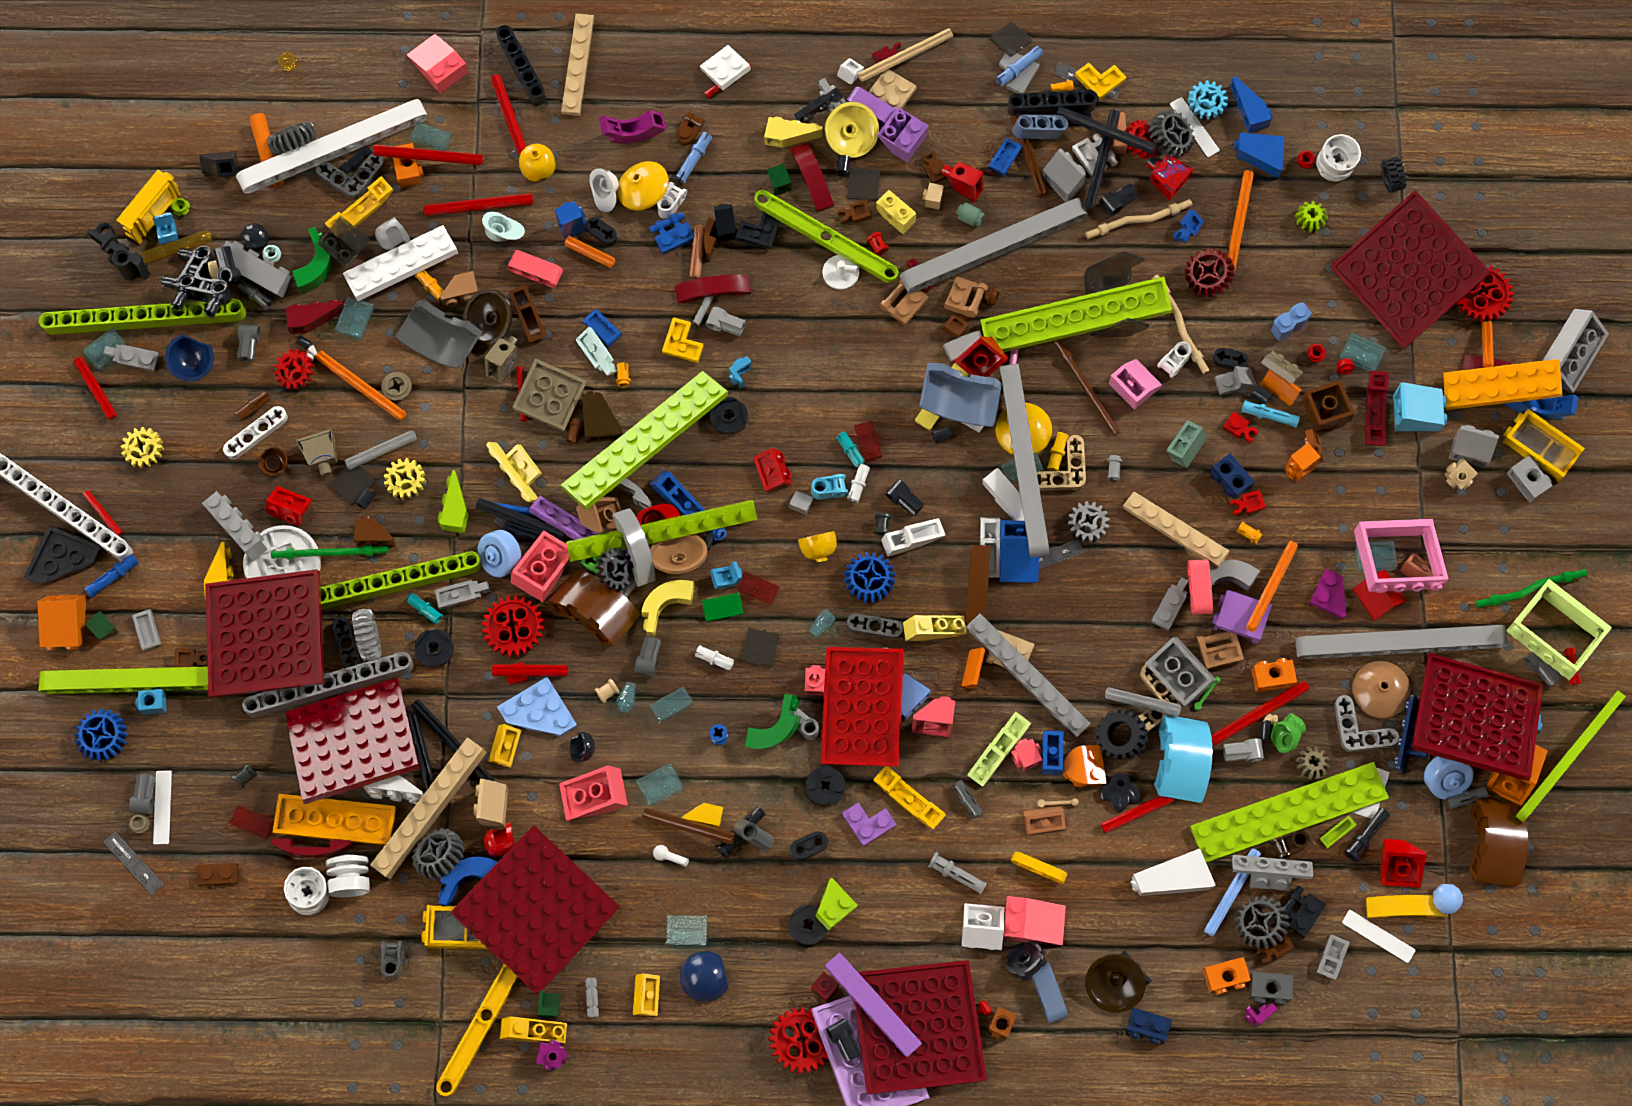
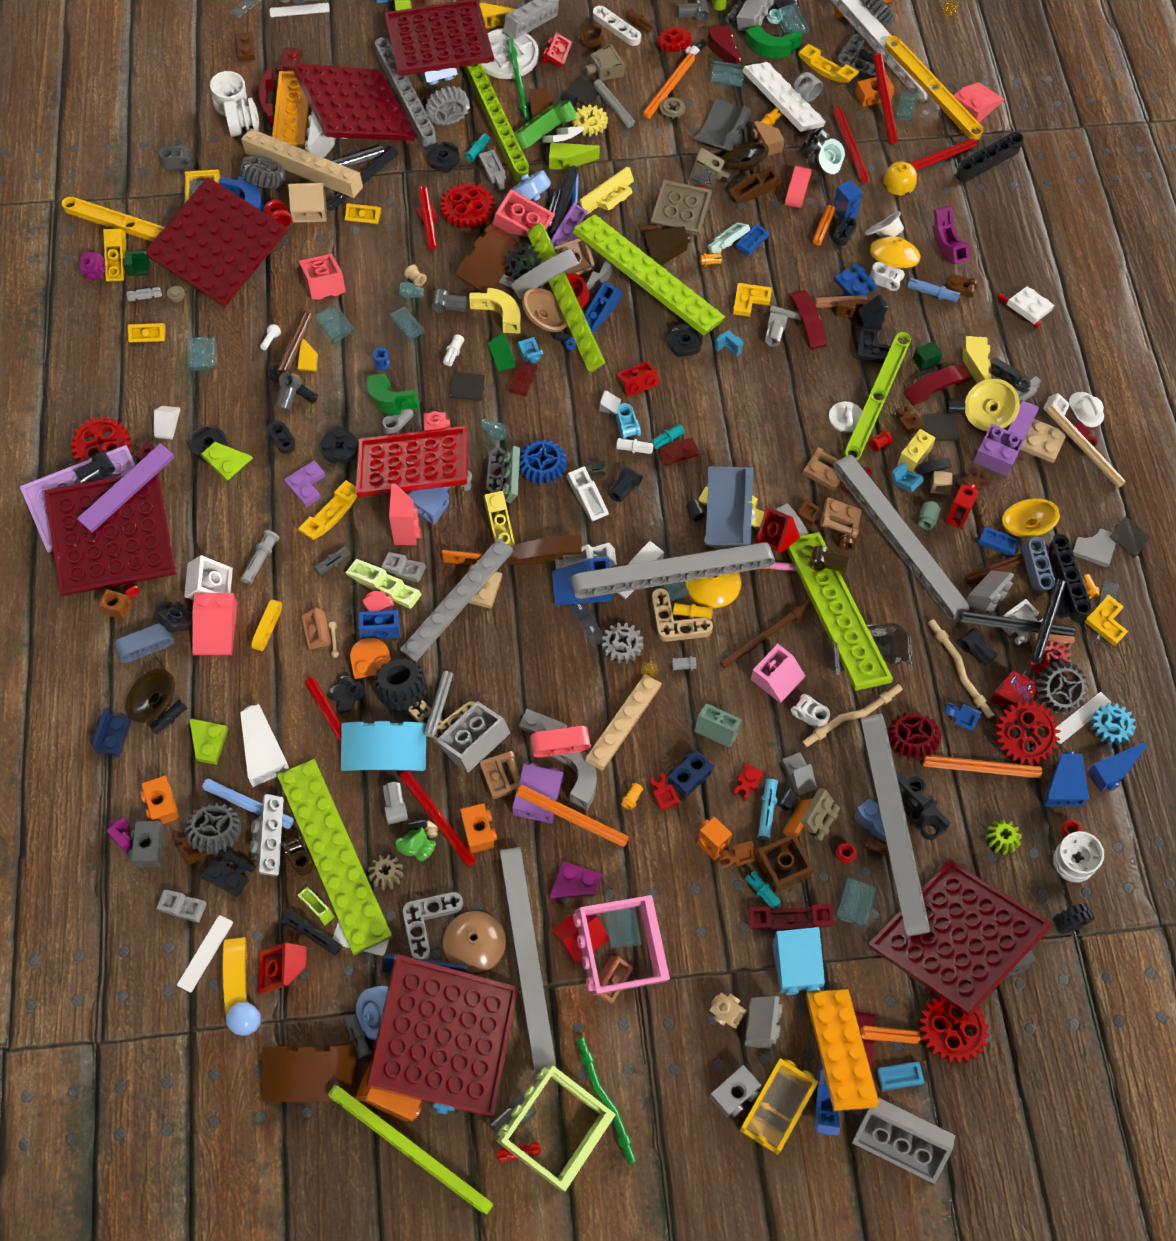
camera: 80 degrees right, 10 degrees down
(244, 775) = (323, 49): pearl dark grey bush -> none
(285, 235) = (791, 19): none -> clear light blue plate
(343, 241) = (793, 52): clear smoke slope -> none
(403, 529) = (544, 122): none -> bright green beam
(407, 107) = (941, 95): none -> yellow beam
(427, 509) = (563, 134): none -> white slope
(487, 238) = (814, 143): none -> black plate
(538, 710) = (396, 233): light blue plate -> none
(577, 64) = (1002, 199): tan plate -> none
(582, 747) = (362, 263): black hair -> none
(596, 960) = (176, 293): none -> dark tan plate
(703, 976) = (162, 368): dark blue cylinder -> none
(772, 971) = (165, 421): none -> white slope
(818, 546) = (566, 416): yellow cylinder -> none
(856, 43) = (1087, 408): none -> white piece
(883, 608) = (511, 474): none -> sand green plate
(920, 191) = (934, 465): none -> black tyre
(926, 227) = (906, 479): none -> dark azure bracket
(977, 119) = (1030, 518): none -> yellow dish
(980, 728) = (402, 567): none -> light grey slope
(1013, 70) = (1101, 543): medium blue pin -> none
(1021, 318) = (822, 559): none -> dark brown piece
(1119, 499) = (650, 669): none -> clear yellow plate
(1161, 930) = (208, 740): none -> lime wing
(1198, 705) = (441, 760): bright green hinge -> none
(1222, 188) = (1016, 745): none -> red gear
(1230, 358) = (818, 766): black beam -> none
(1275, 284) = (920, 807): none -> black plate
(1305, 301) = (895, 825): none -> light grey beam
(1310, 329) = (877, 846): none -> reddish brown pin
(1345, 366) = (835, 882): red plate -> none
(1349, 429) = (763, 890): none -> teal axle
(1519, 344) = (900, 1076): none -> dark azure tile

